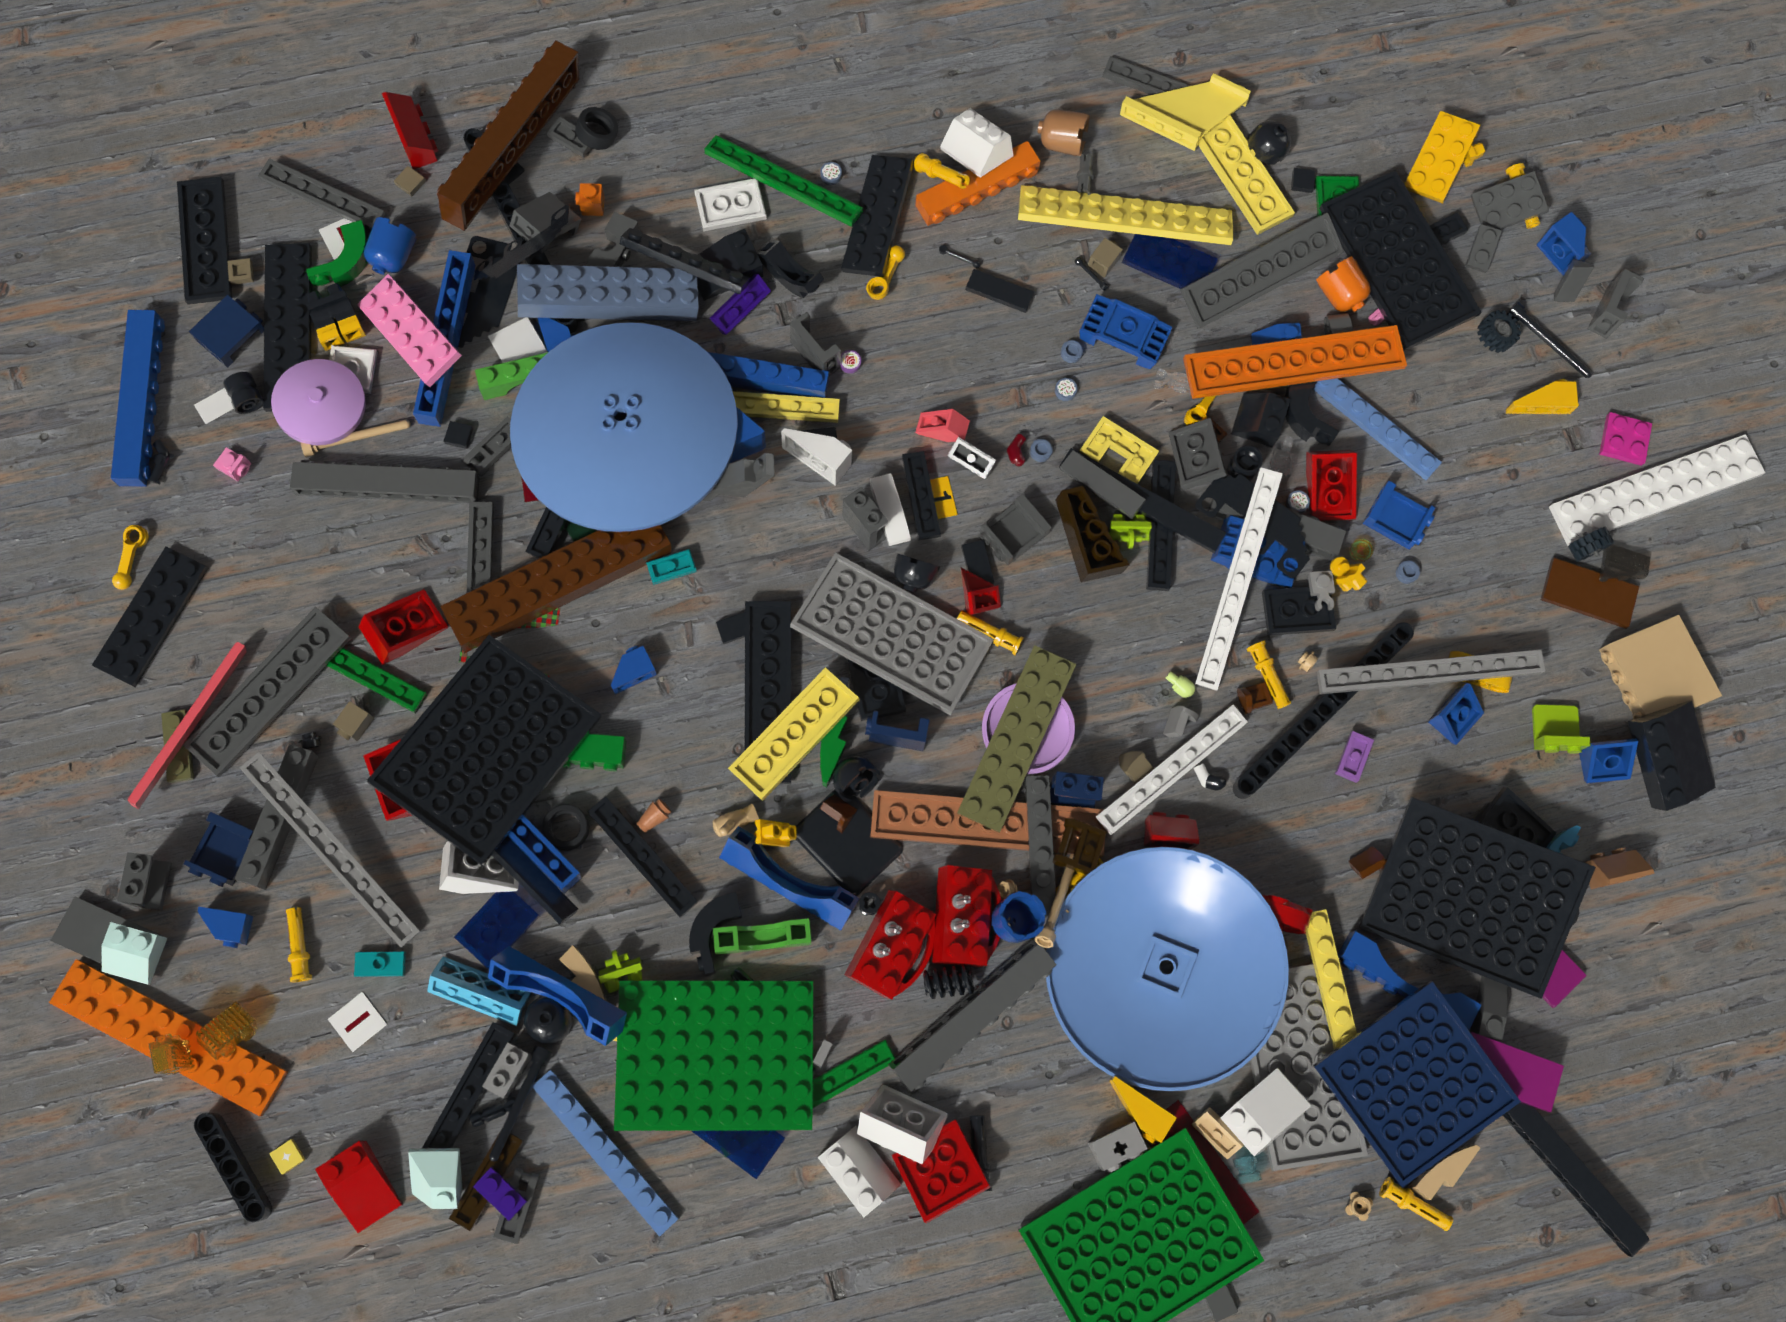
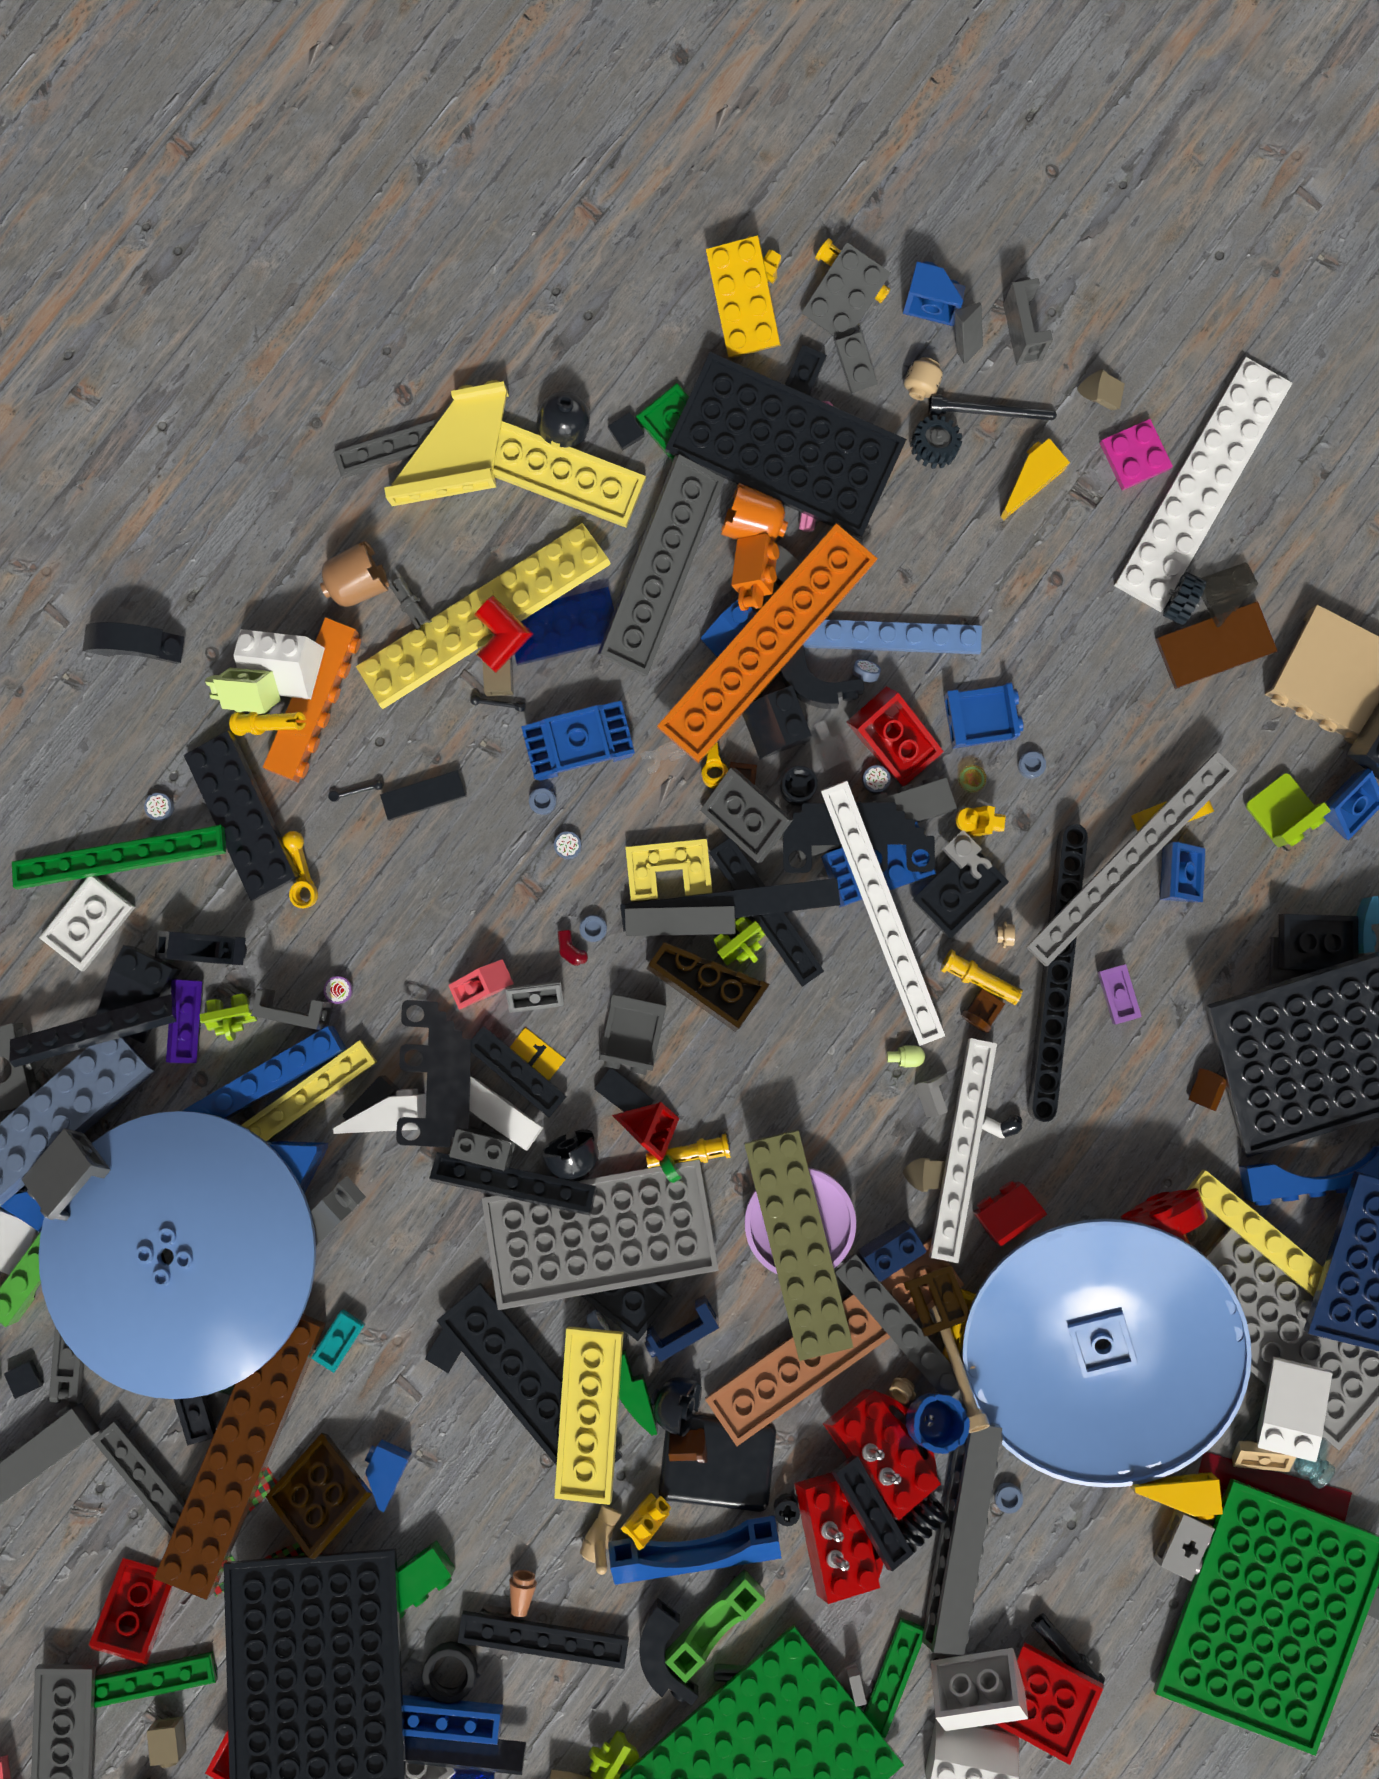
camera: 30 degrees left, 10 degrees up
(580, 645) = (318, 1495): none -> dark brown plate
(597, 320) = (63, 1172): none -> dark grey panel
(769, 323) = (227, 1020): none -> lime hips
(864, 557) = (514, 1184): none -> black plate
(878, 459) = (448, 1077): none -> black piece
(900, 64) = (132, 639): none -> black arch
(928, 941) = (872, 1513): none -> black plate
(943, 144) = (244, 690): none -> yellowish green brick
(972, 626) = (670, 1169): none -> green tile
(1021, 1020) = (1008, 1498): none -> sand blue tile
(1134, 233) = (508, 633): none -> red brick
(1322, 312) = (754, 569): none -> orange brick
(1345, 432) = (866, 670): none -> sand blue tile
(1520, 289) = (923, 378): none -> tan head
(1634, 382) = (1103, 389): none -> dark tan tile

